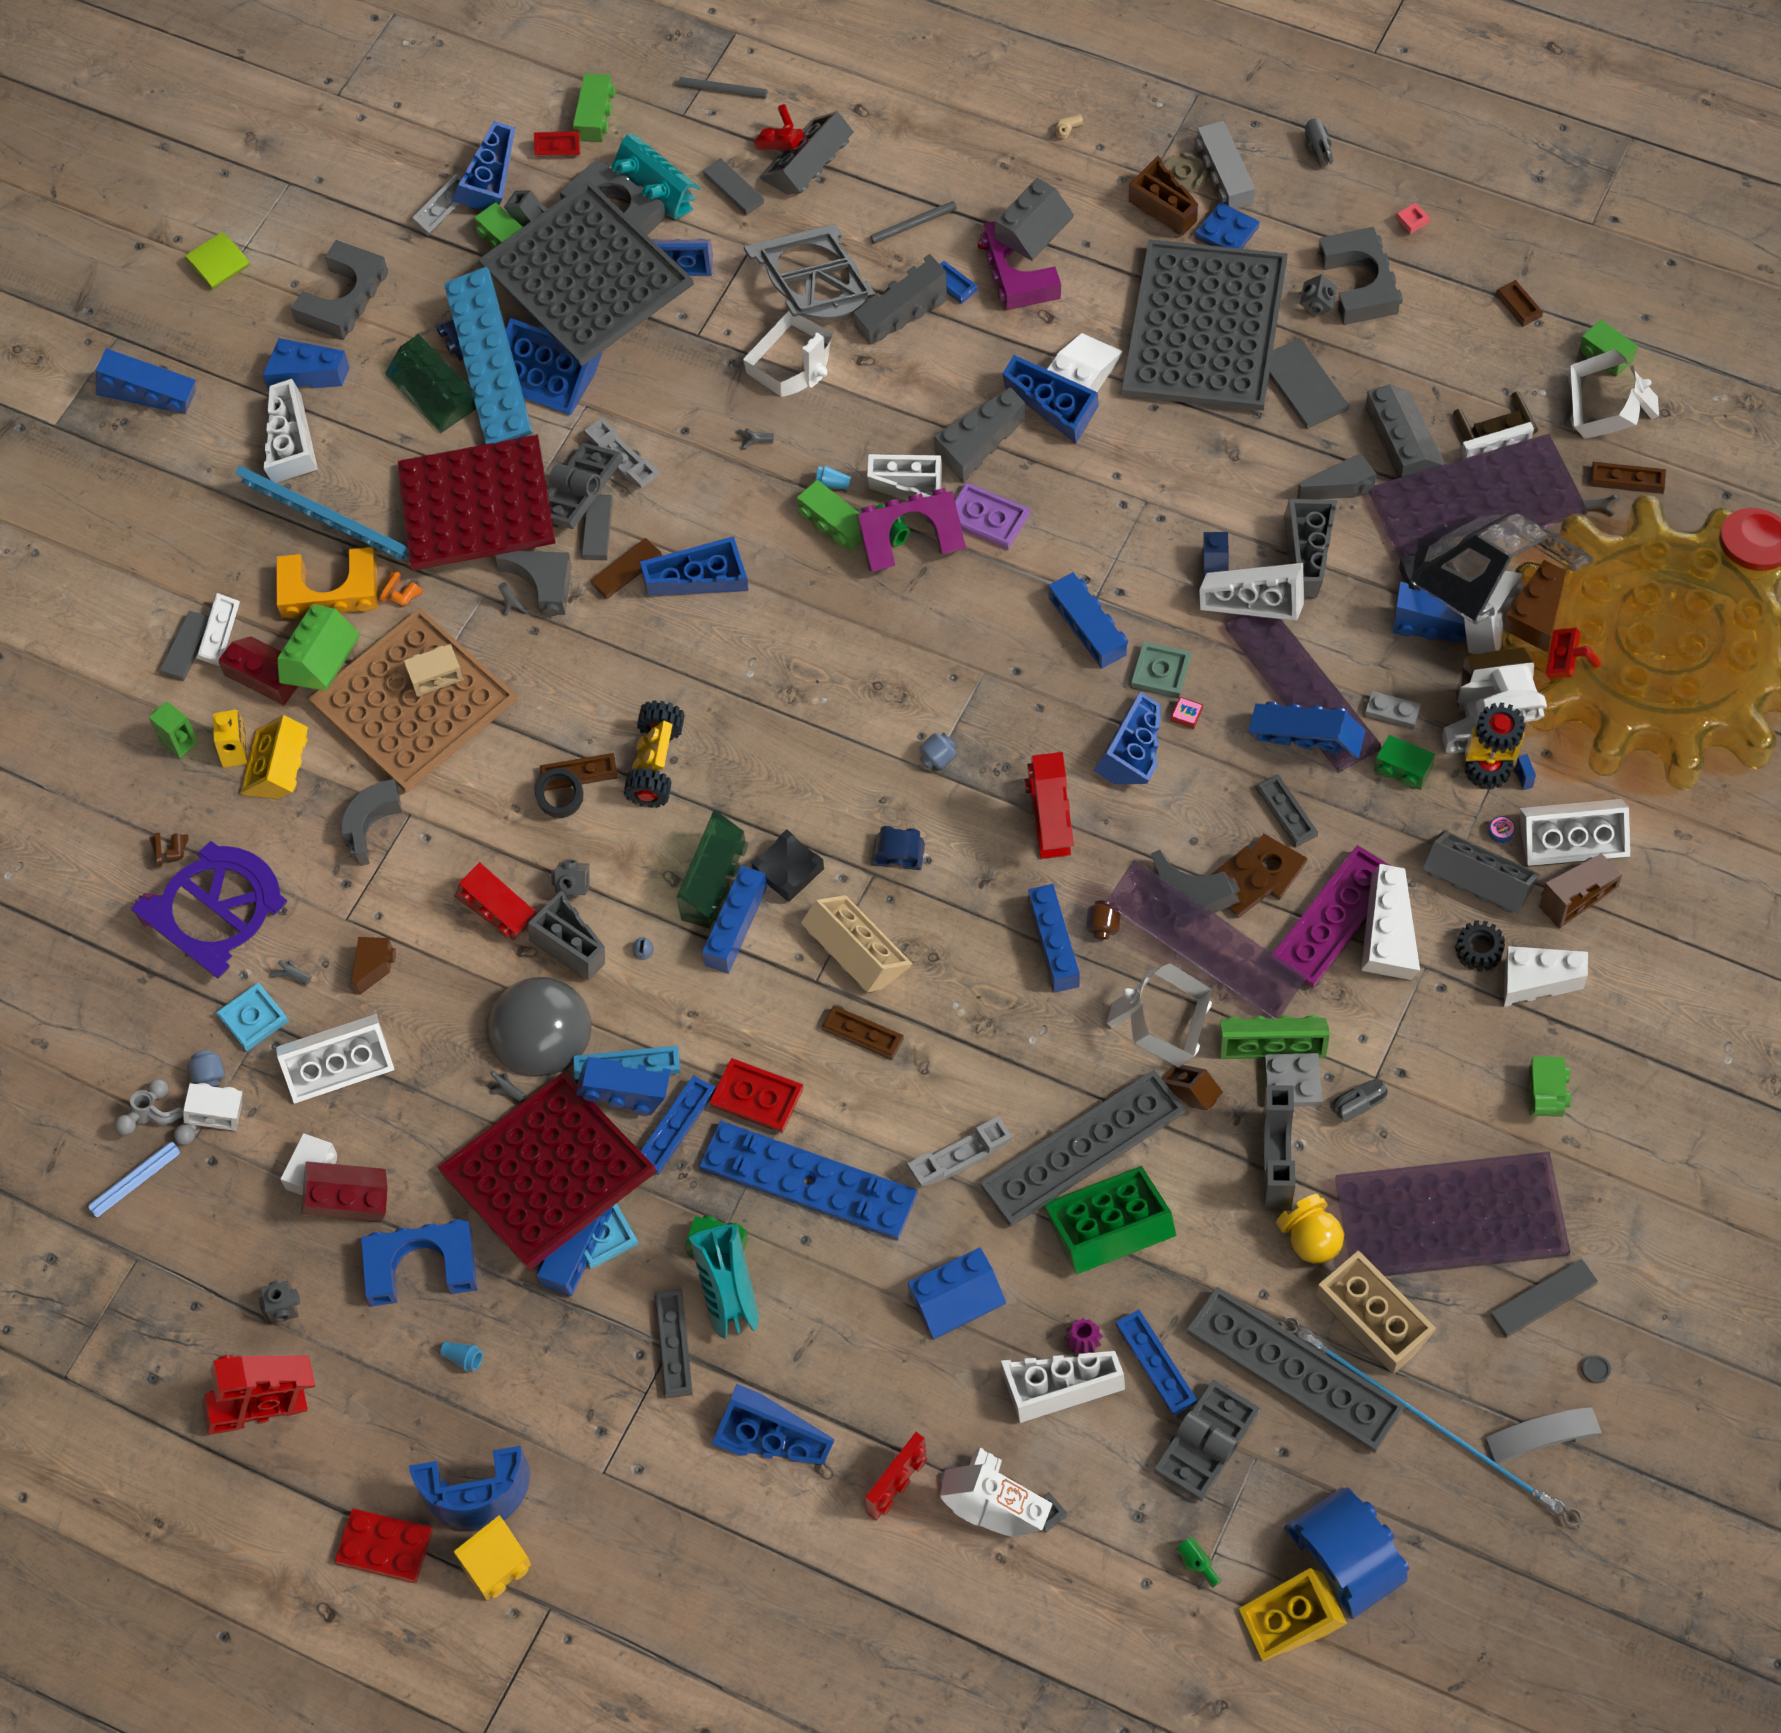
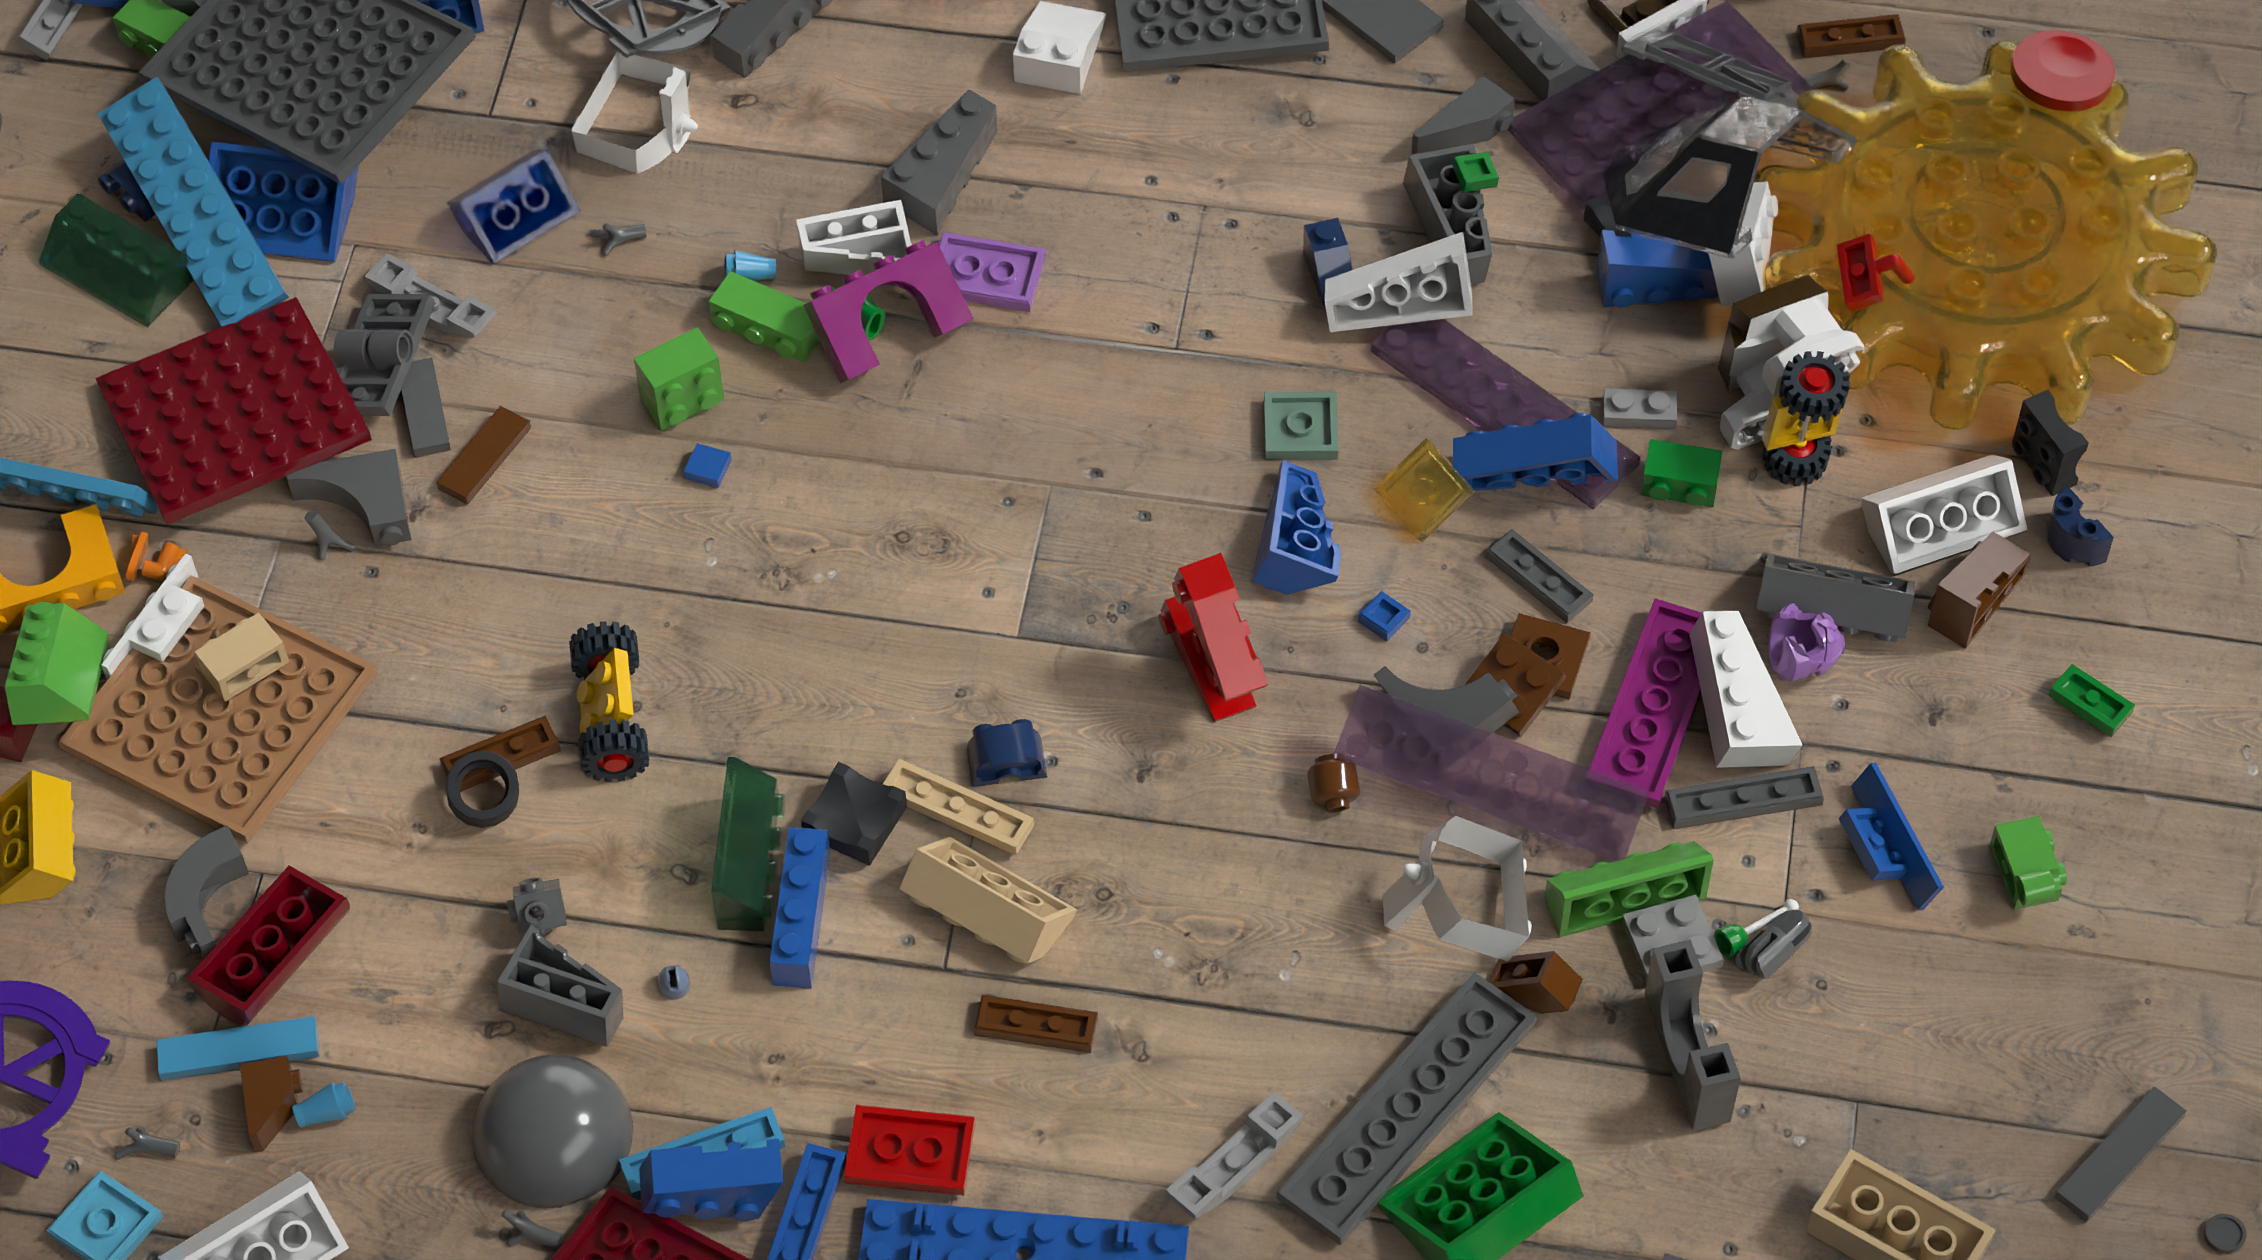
camera: 20 degrees left, 5 degrees down
(363, 924) = (236, 1046): none -> dark azure tile
(393, 633) = (161, 621): none -> white bracket
(398, 863) = (267, 945): none -> dark red brick
(405, 975) = (326, 1105): none -> dark azure cone
(494, 902) = (432, 966): red wedge -> none
(693, 402) = (514, 205): none -> clear blue slope
(695, 570) = (592, 433): blue wedge -> none
(763, 546) = (679, 379): none -> bright green brick
(766, 608) = (707, 465): none -> blue tile
(857, 877) = (961, 807): none -> tan plate
(937, 751) = (1021, 605): sand blue head -> none
(1052, 396) = (1030, 90): blue wedge -> none
(1053, 938) = (1272, 824): blue brick -> none
(1088, 620) = (1177, 380): blue brick -> none
(1174, 813) = (1384, 616): none -> blue tile
(1187, 712) = (1356, 475): tile -> none
(1226, 734) = (1424, 490): none -> clear yellow tile
(1314, 1233) = (1778, 1141): yellow tile -> none
(1329, 521) = (1475, 171): none -> green plate
(1333, 1088) = (1733, 937): none -> green hinge
(1373, 995) = (1744, 797): none -> dark grey tile
(1446, 900) = (1803, 643): none -> medium lavender helmet
(1454, 1214) = (1958, 1068): clear purple plate -> none
(1457, 1048) = (1887, 839): none -> blue bracket
(1475, 958) = (1868, 713): black tyre -> none
(1502, 829) = (1843, 533): tile -> none
(1525, 771) = (1850, 449): blue tile -> none
(1530, 507) = (1721, 71): none -> dark grey window
(1536, 607) = (1807, 221): reddish brown wedge -> none
(1542, 972) = (1965, 710): white wedge -> none
(1631, 985) = (2091, 700): none -> green plate
(1658, 869) = (2075, 536): none -> dark blue cylinder
(1660, 800) = (2048, 443): none -> black brick

